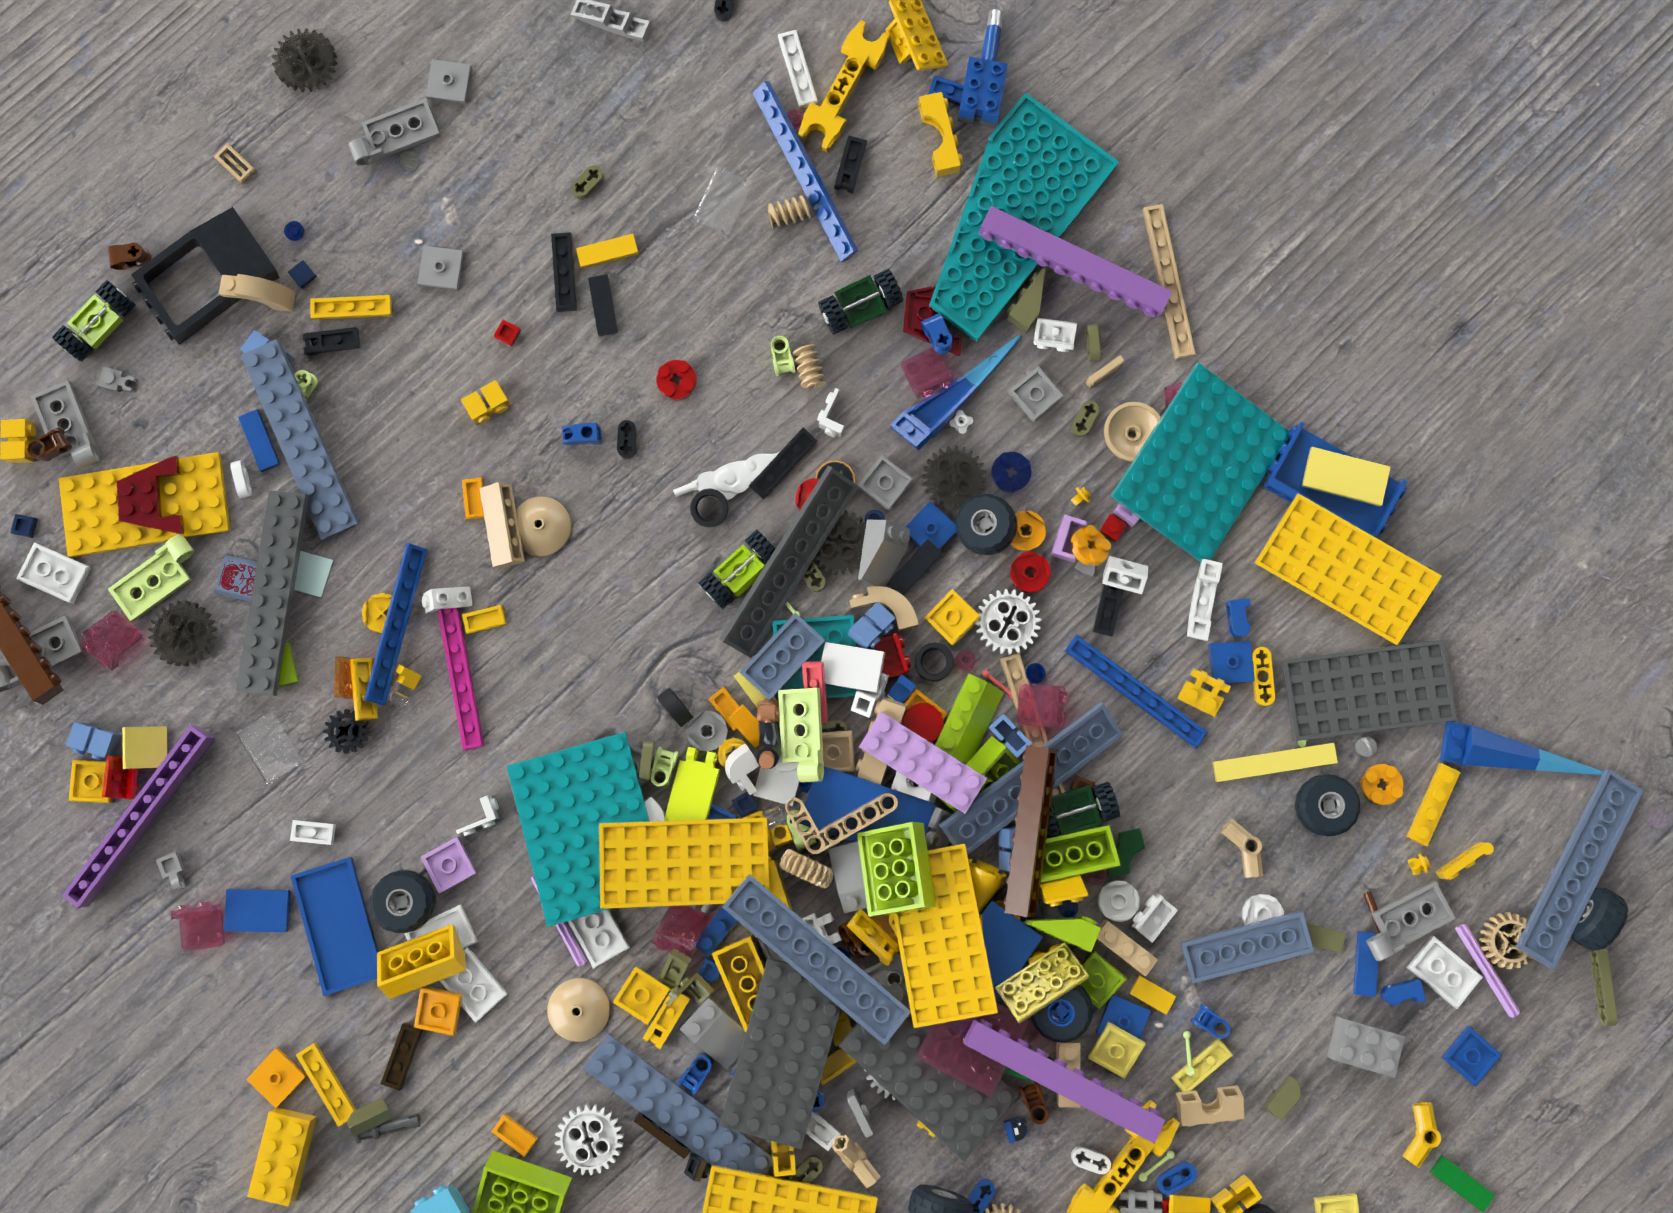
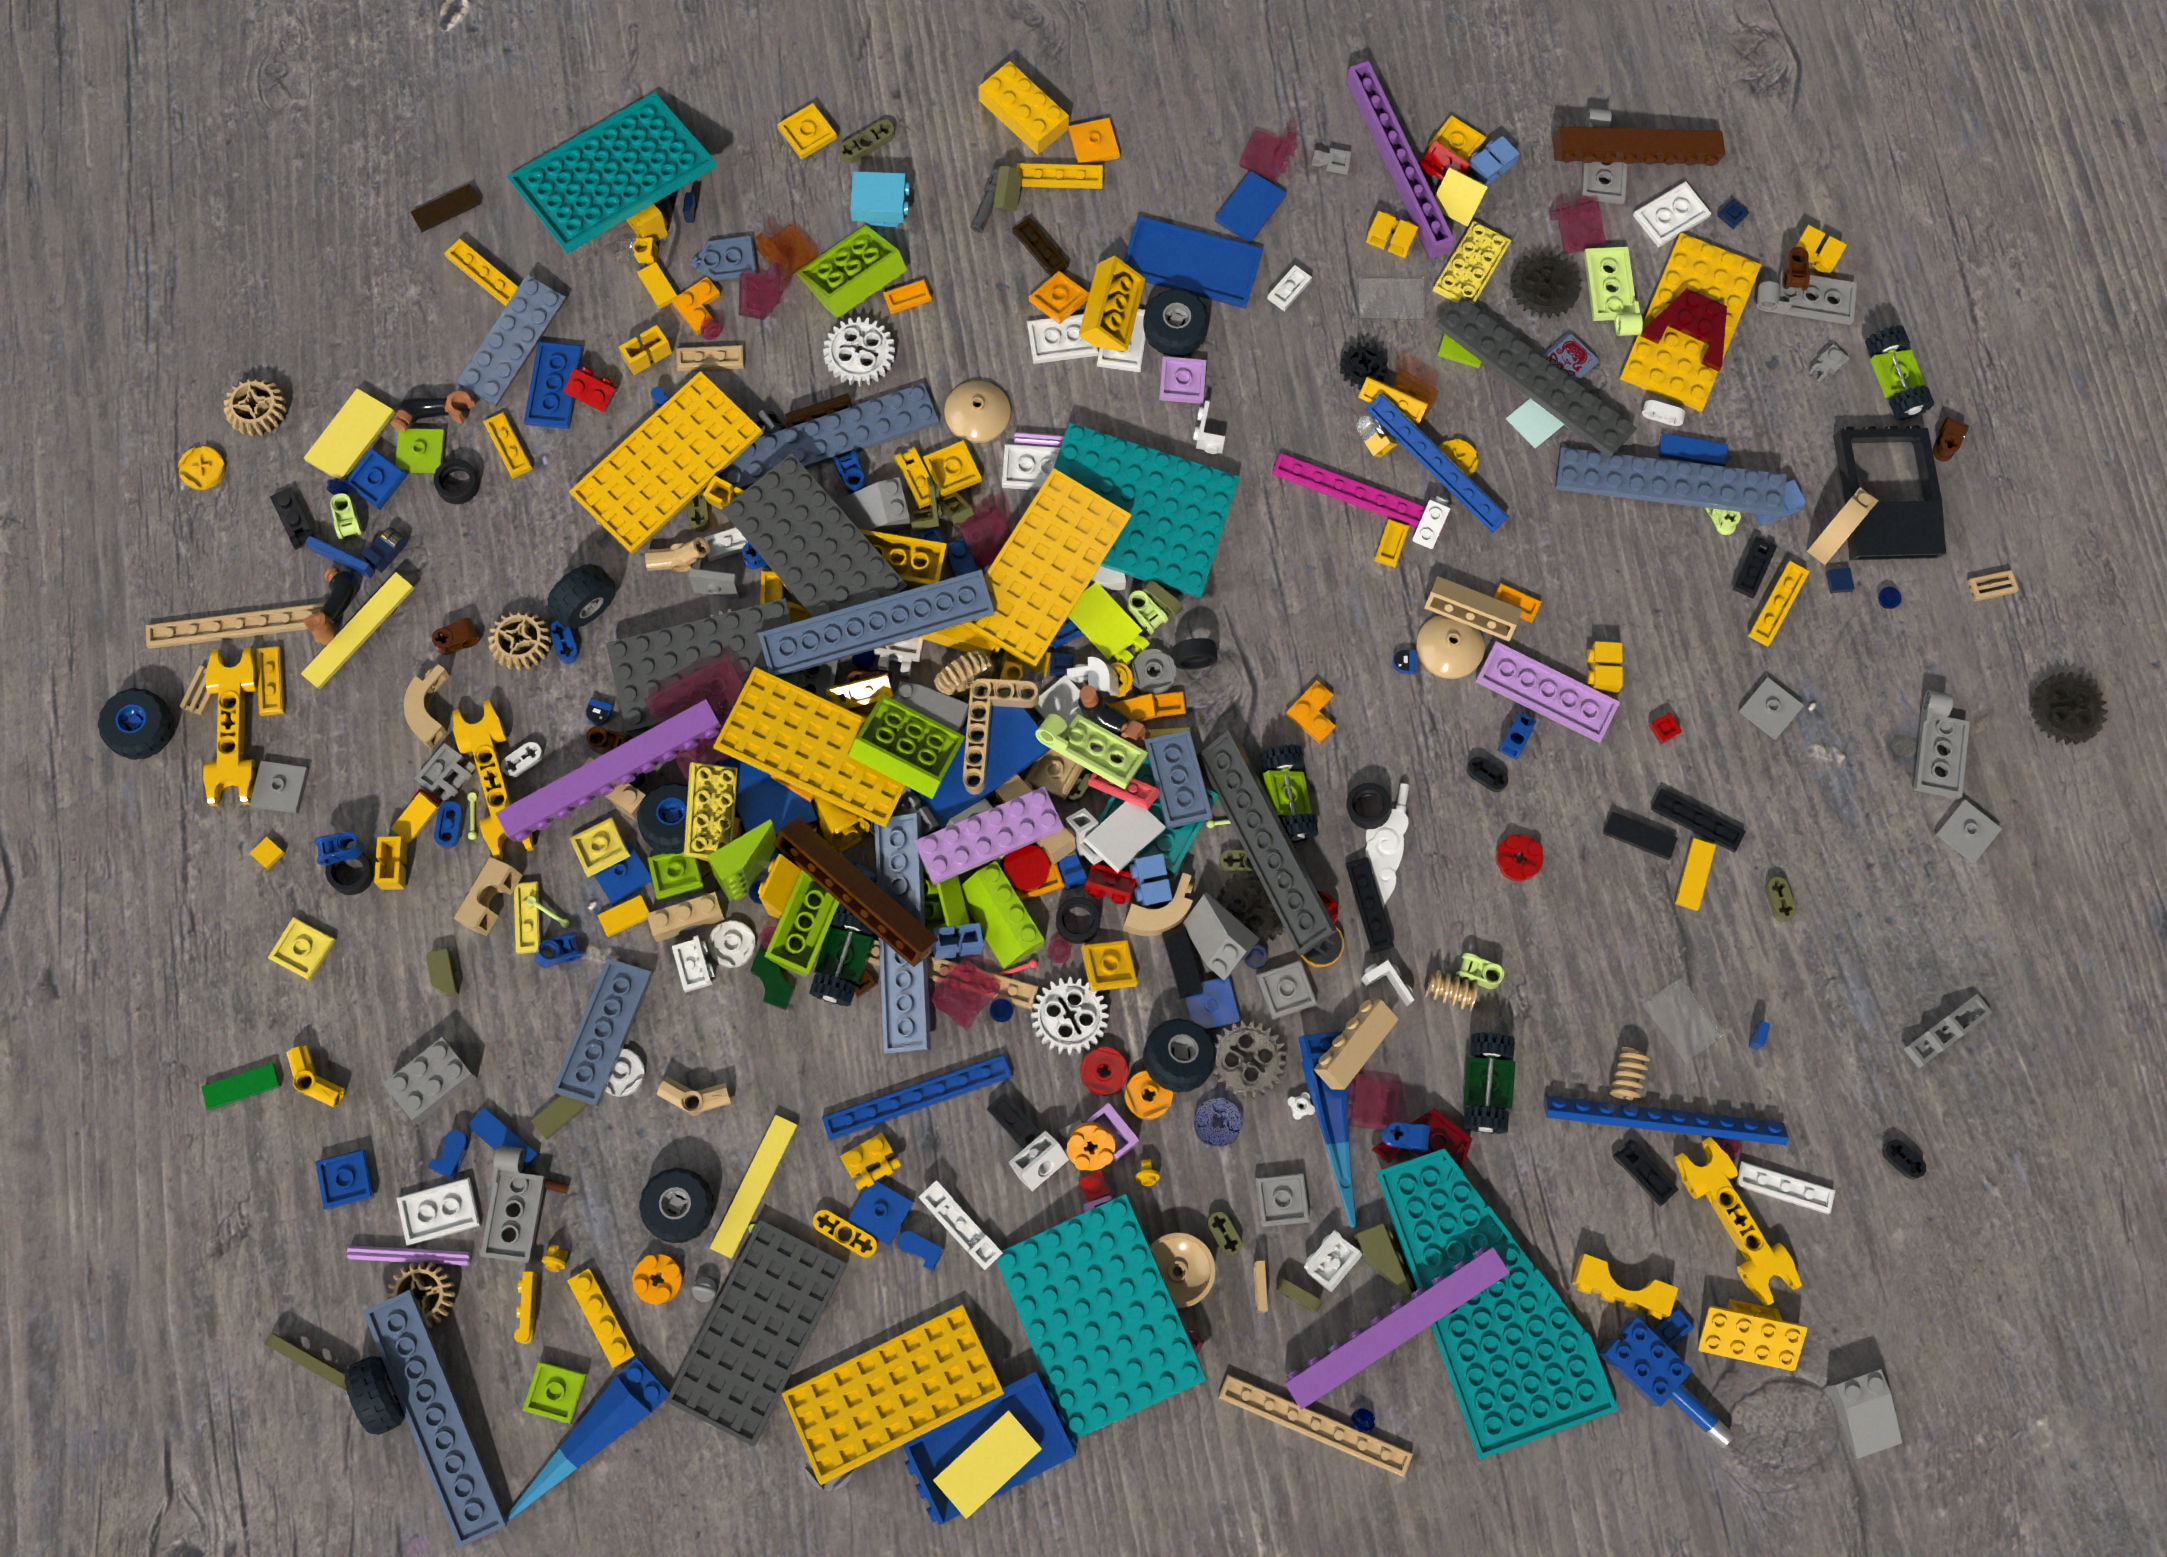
camera: 120 degrees right, 10 degrees down
(199, 702) = (1472, 264): none -> light yellow tile
(211, 770) = (1382, 228): none -> yellow piece
(533, 433) = (1547, 692): none -> lavender plate
(575, 551) = (1405, 661): none -> tile
(662, 599) = (1307, 712): none -> light orange plate
(700, 141) = (1759, 1035): none -> blue tile
(895, 407) = (1355, 1044): none -> tan brick
(1145, 251) = (1363, 1420): none -> clear blue plate
(1503, 799) = (554, 1392): none -> lime plate

